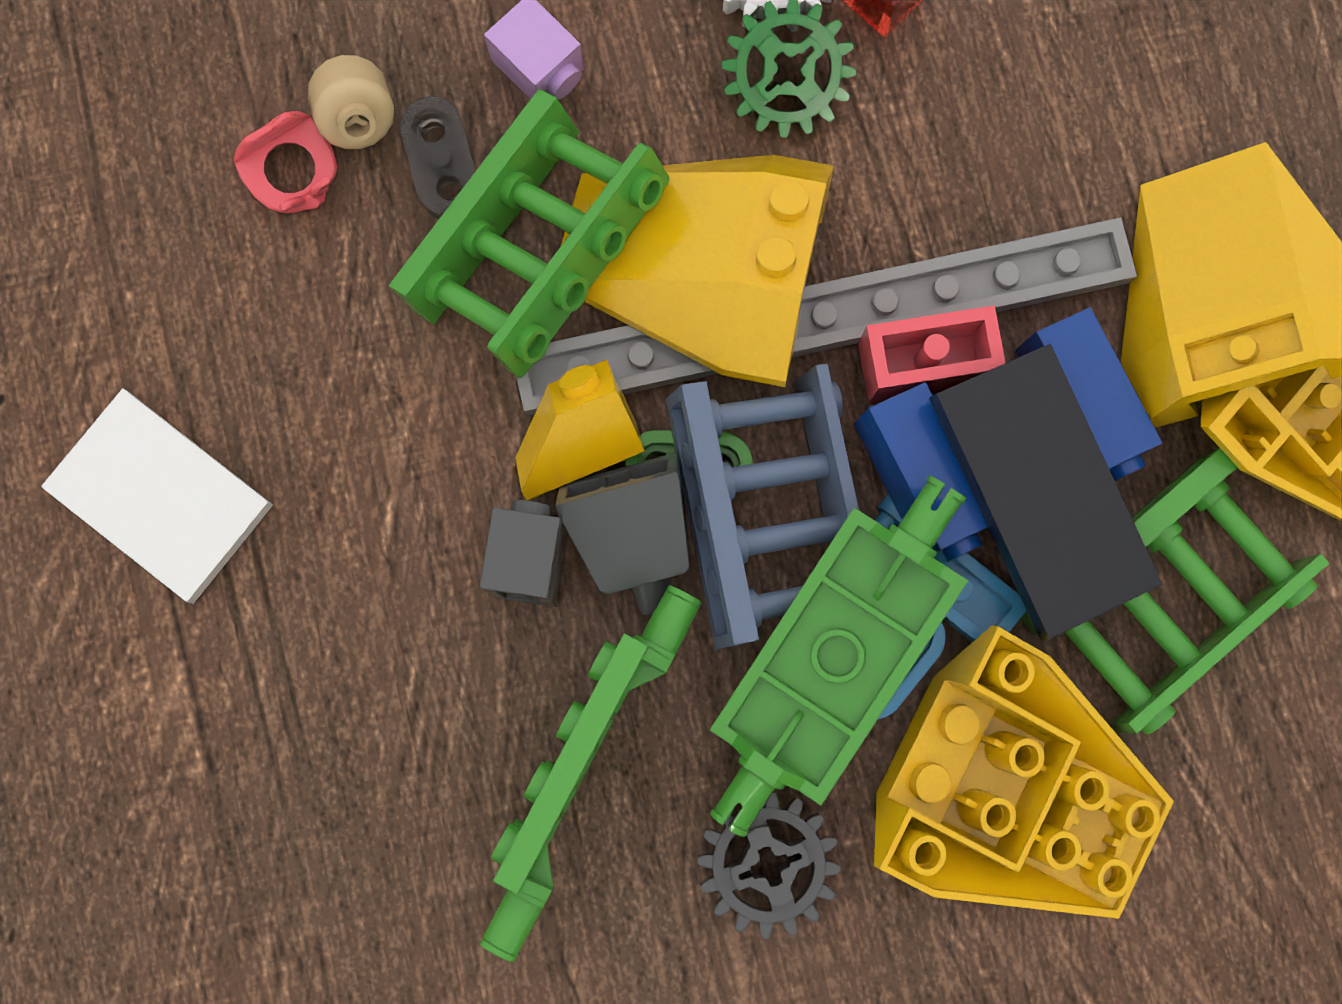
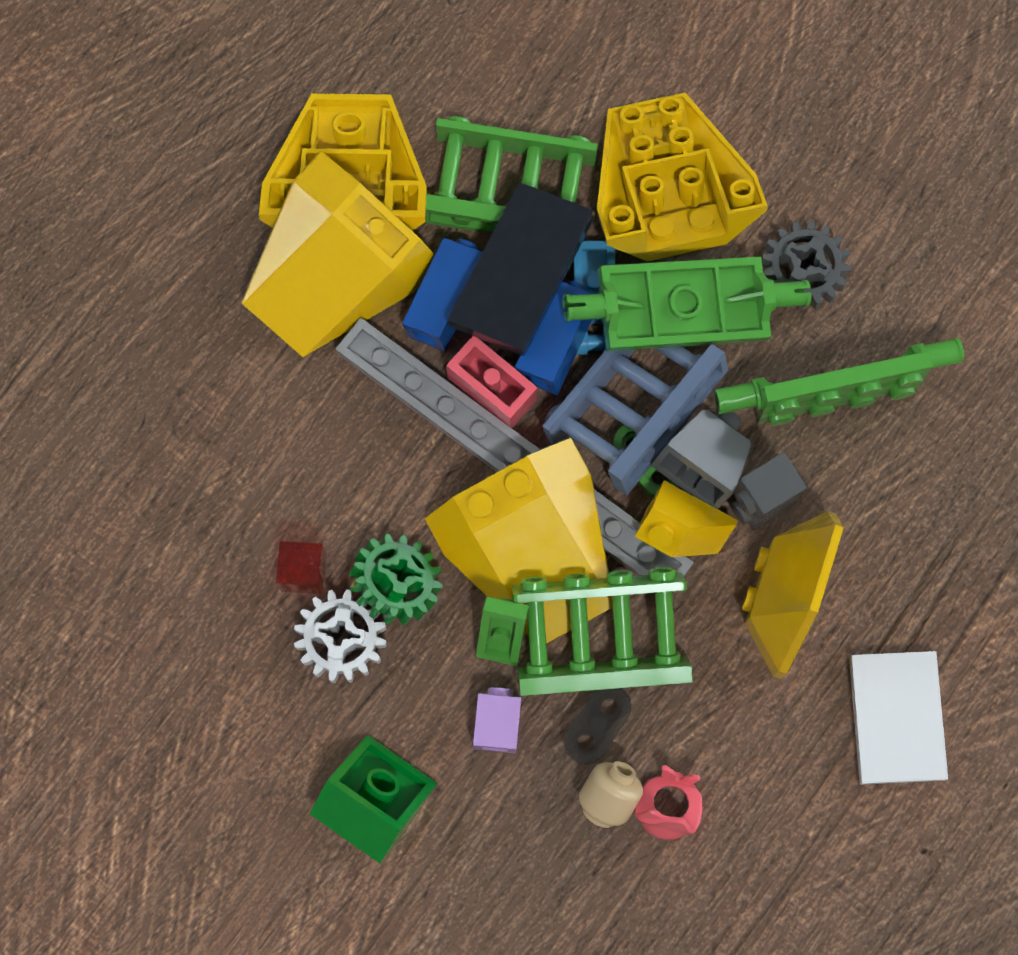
camera: 130 degrees left, 5 degrees down
(394, 491) = (790, 588): none -> yellow wedge
(629, 125) = (502, 630): none -> bright green plate

